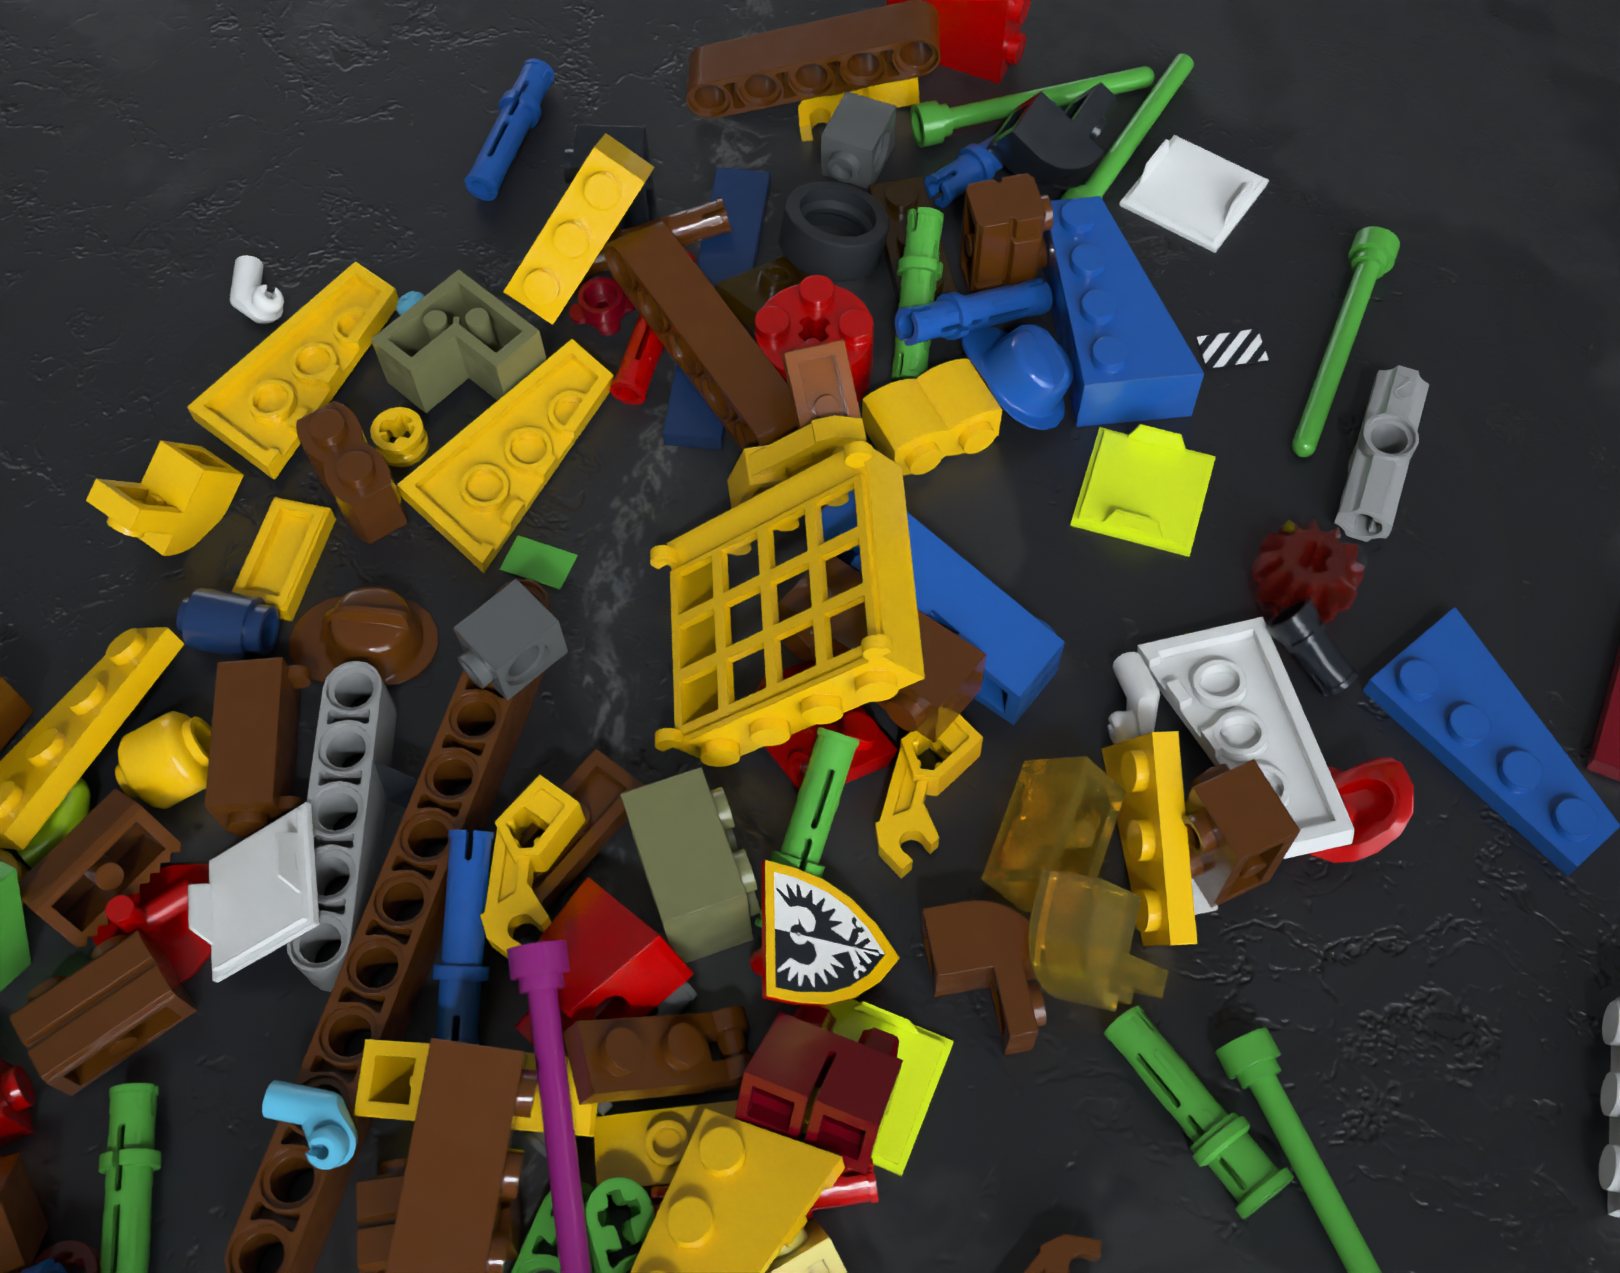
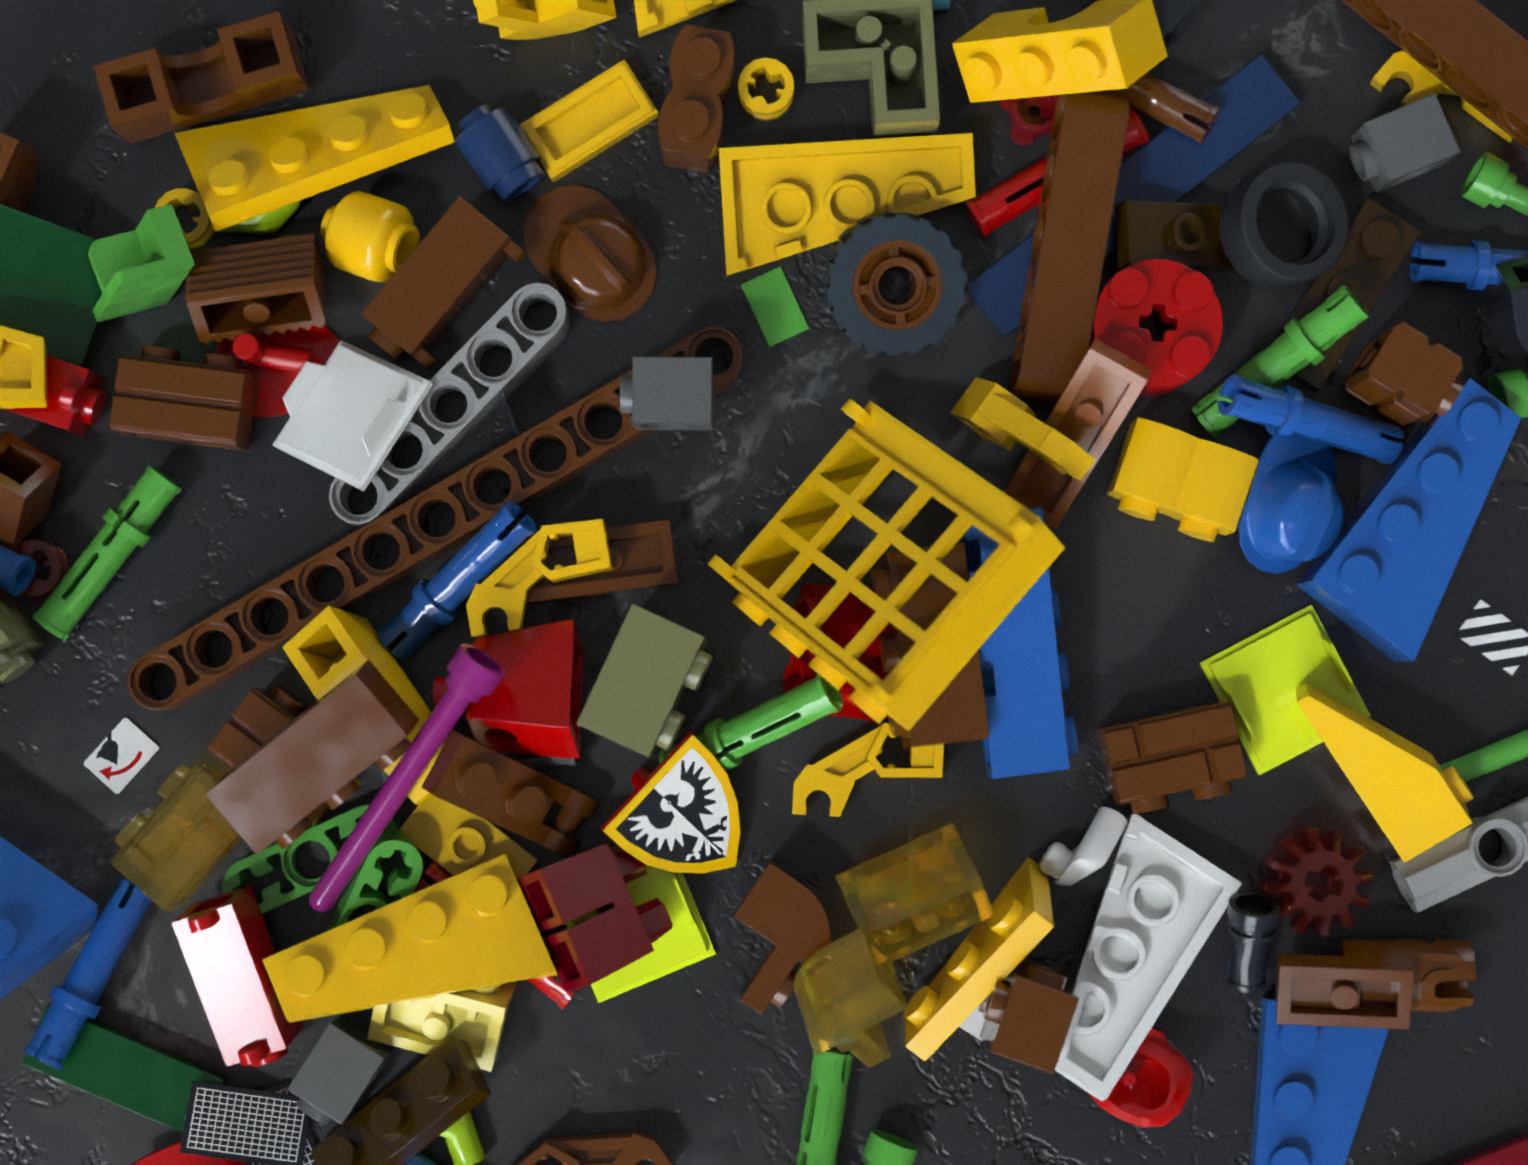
camera: 45 degrees right, 25 degrees up
(323, 1119) = (260, 633): medium azure arm -> none
(614, 430) = (933, 293): none -> black wheel
(1119, 582) = (1172, 755): none -> reddish brown brick
(1283, 463) = (1394, 777): none -> yellow slope
(1421, 593) = (1374, 982): none -> reddish brown plate

